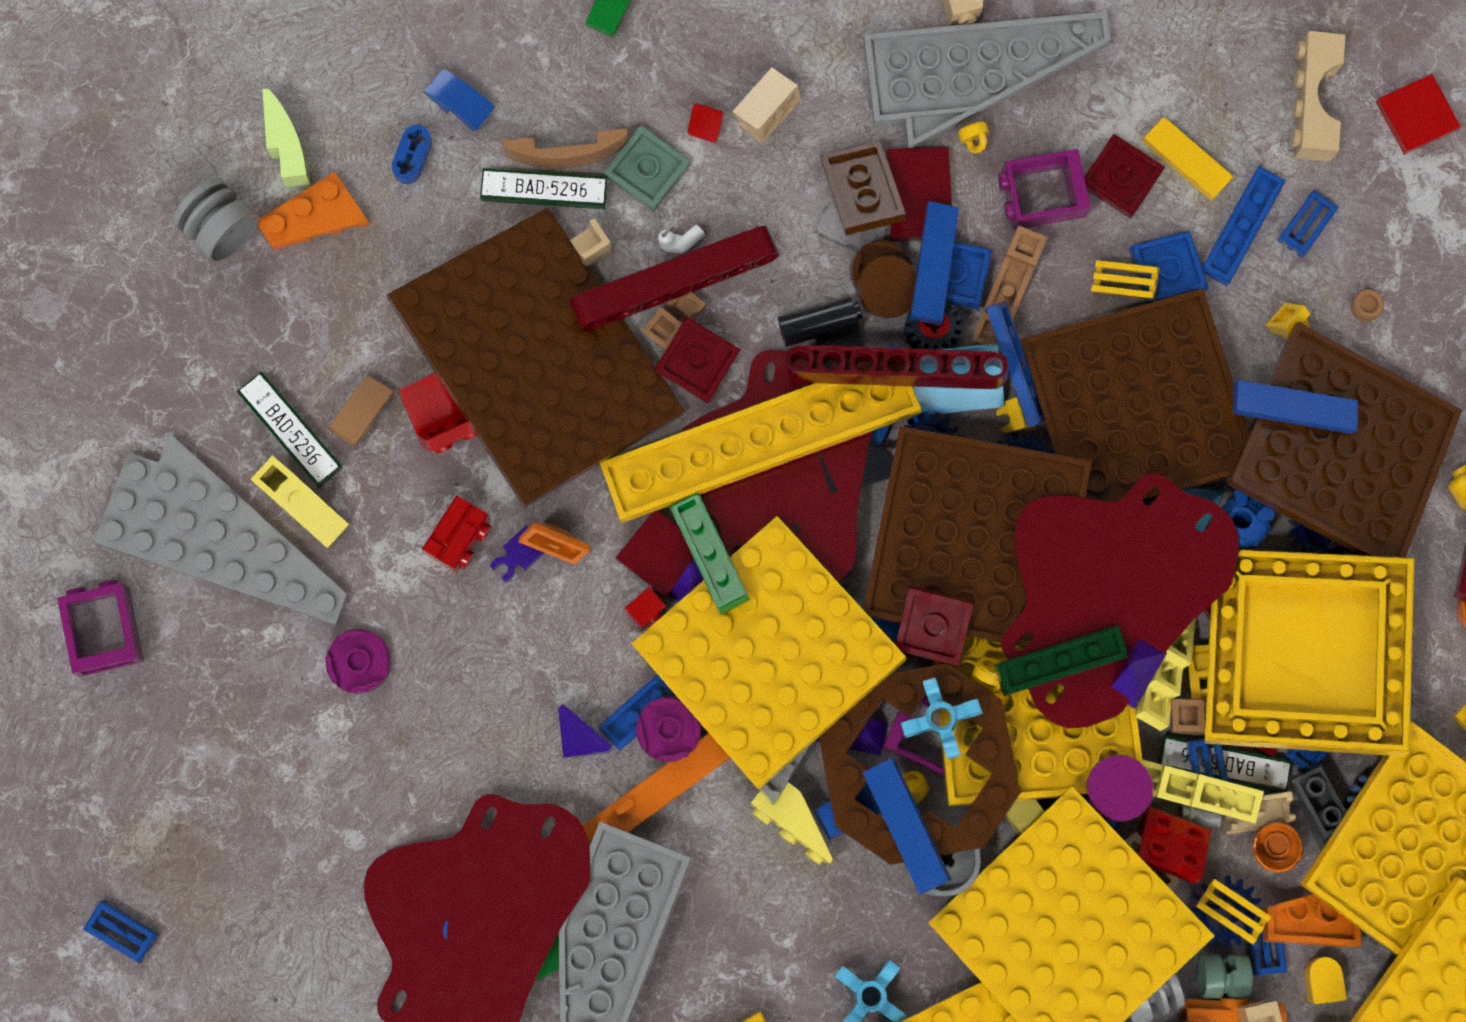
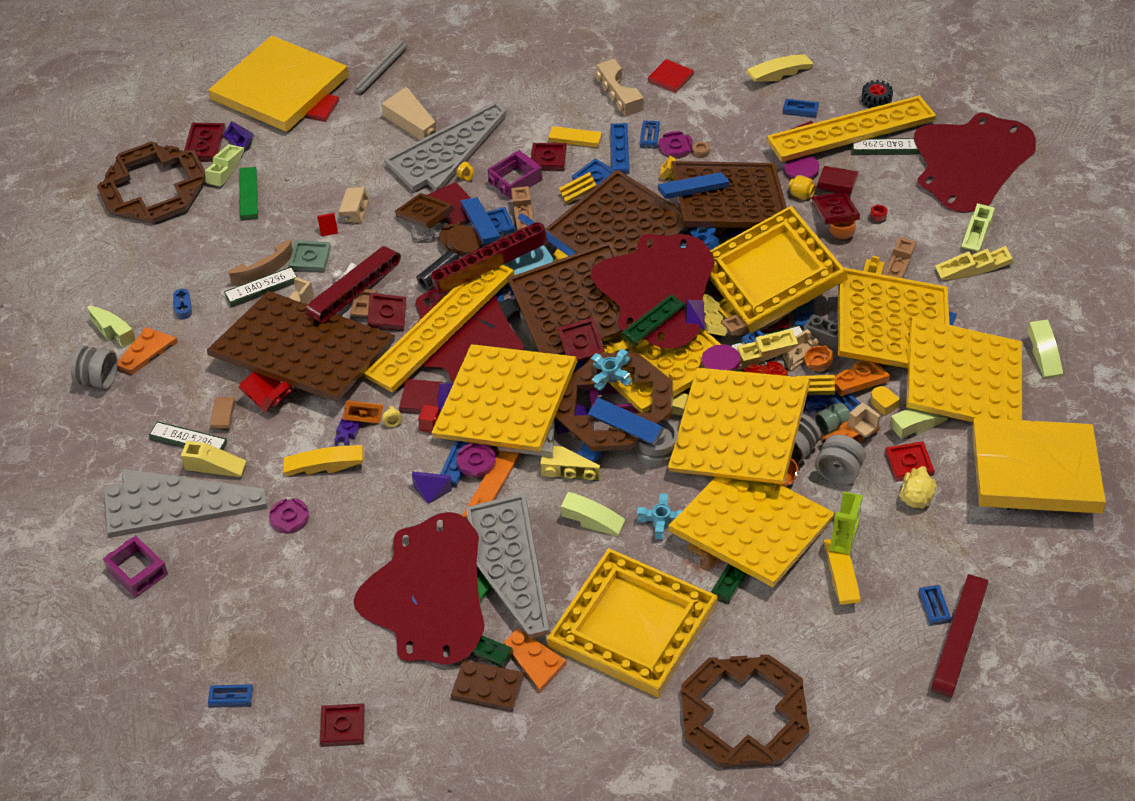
camera: 20 degrees left, 30 degrees down
(455, 595) = (329, 459): none -> yellow slope
(457, 534) = (308, 433): red brick -> none
(461, 99) = (189, 269): blue slope -> none
(594, 572) = (392, 417): none -> light yellow tile
(709, 553) = (446, 374): green tile -> none
(775, 933) = (591, 514): none -> yellowish green slope
(1334, 270) = (675, 144): none -> magenta tile

